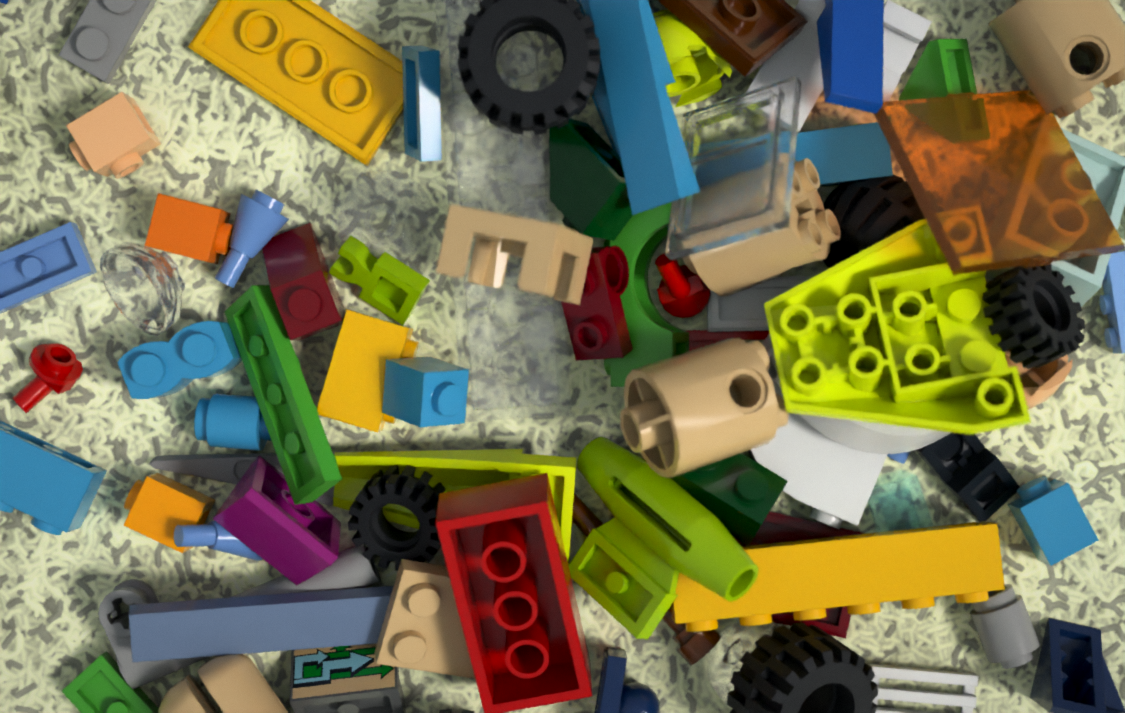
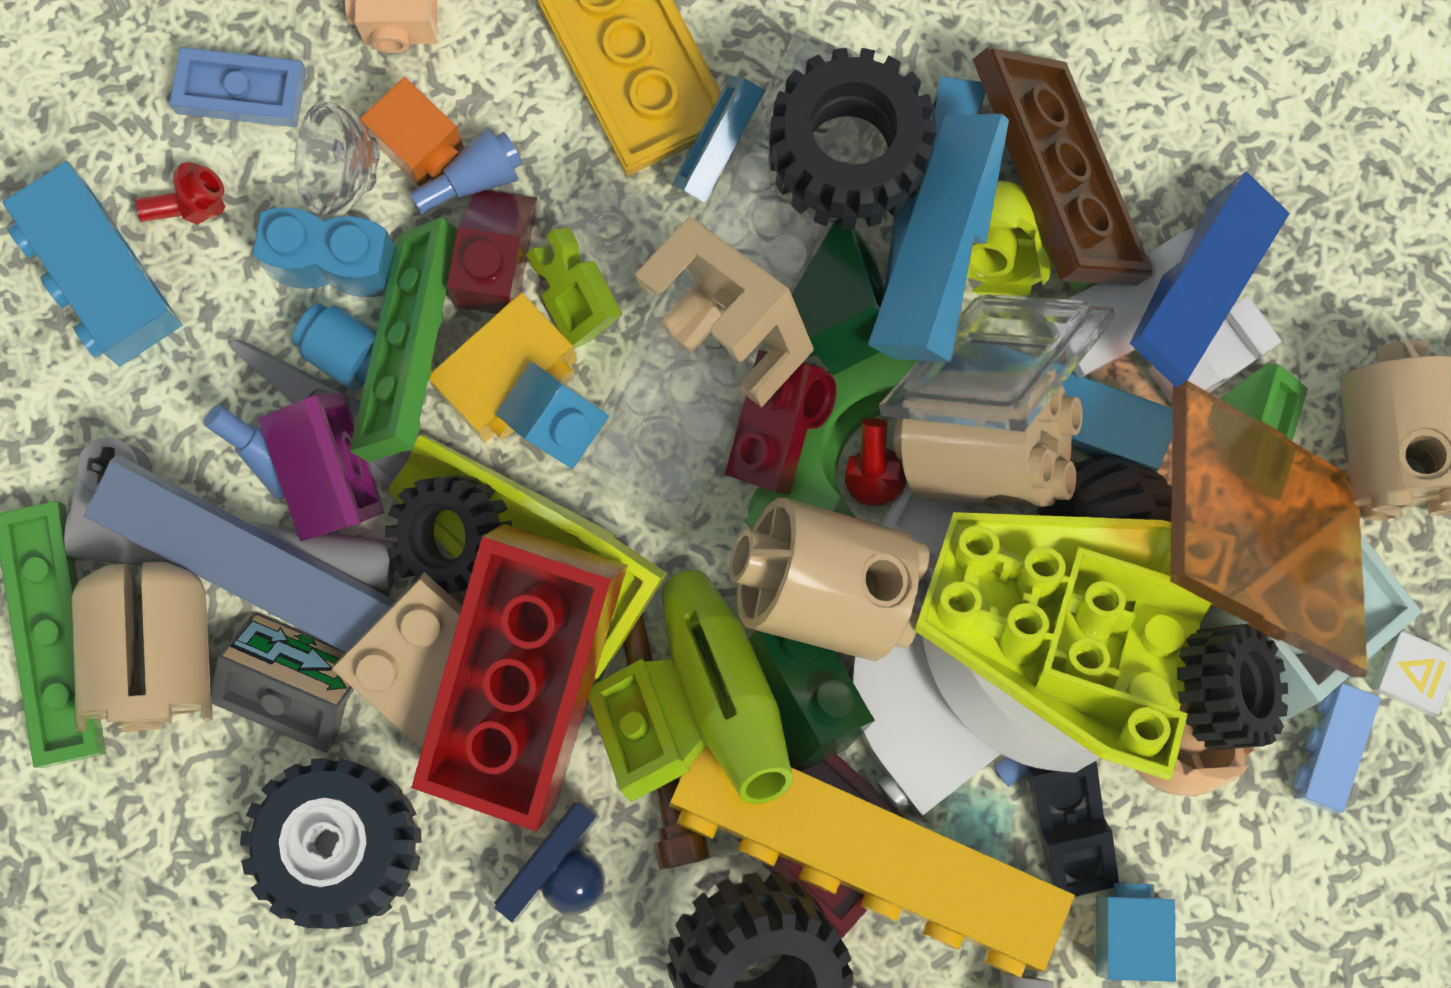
camera: 30 degrees right, 10 degrees down
(161, 505) = (211, 379): light orange brick -> none

